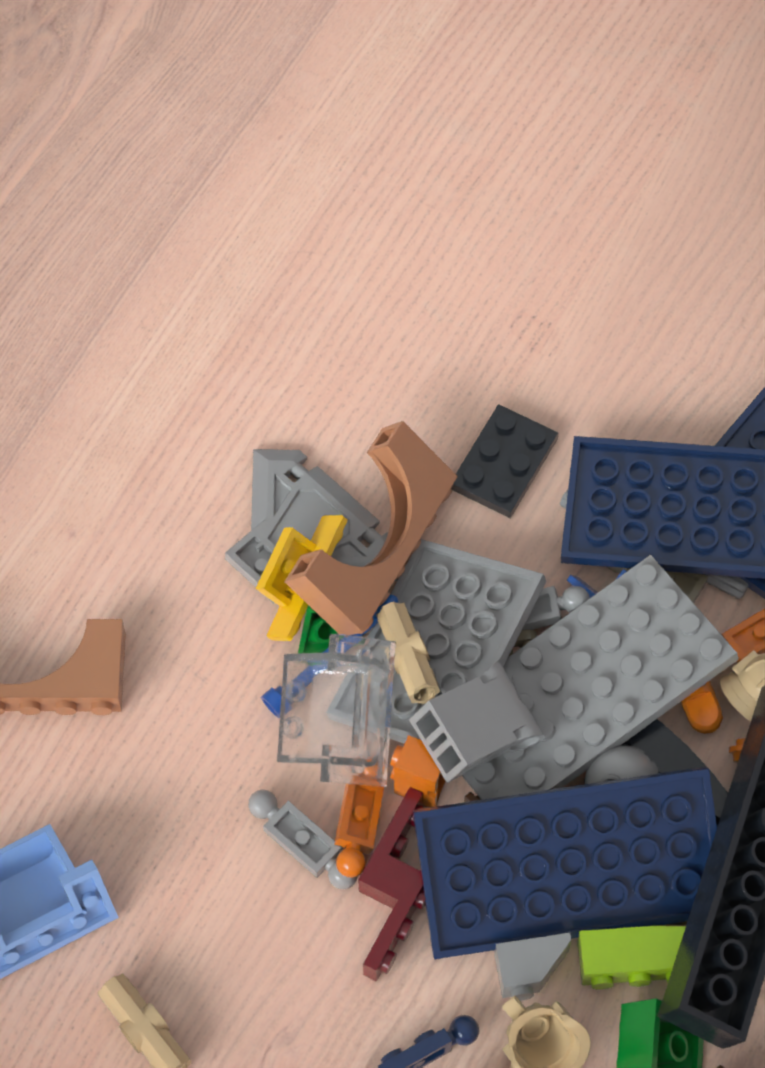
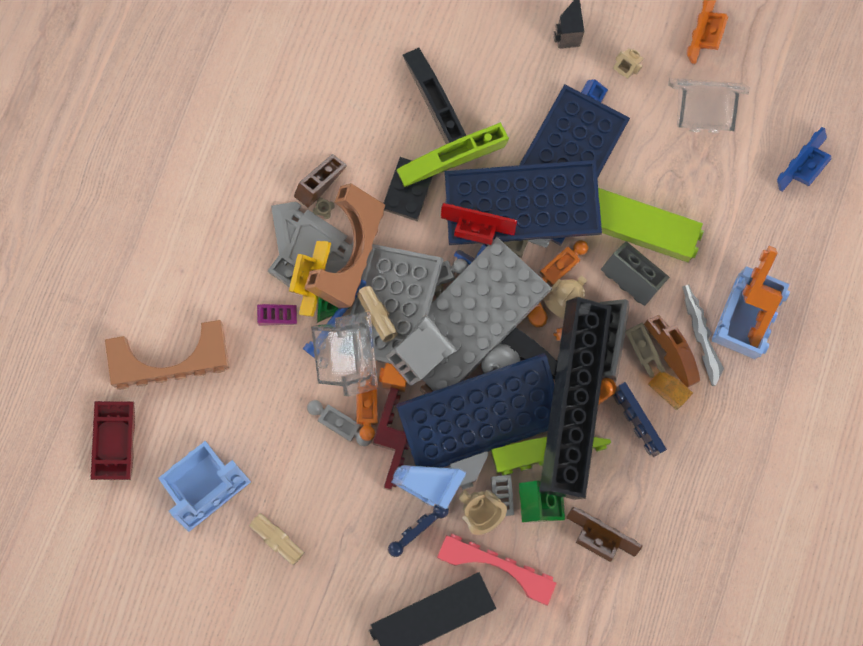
camera: 15 degrees left, 15 degrees up
(223, 644) = (277, 321): none -> magenta slope
(345, 420) = (319, 180): none -> reddish brown slope
(346, 459) = (323, 203): none -> dark tan plate
(446, 959) = (429, 484): none -> light blue windscreen
(580, 323) = (434, 96): none -> black slope
(591, 992) = (506, 478): none -> light grey slope
(598, 410) = (454, 154): none -> lime slope
(617, 527) = (477, 225): none -> red bracket

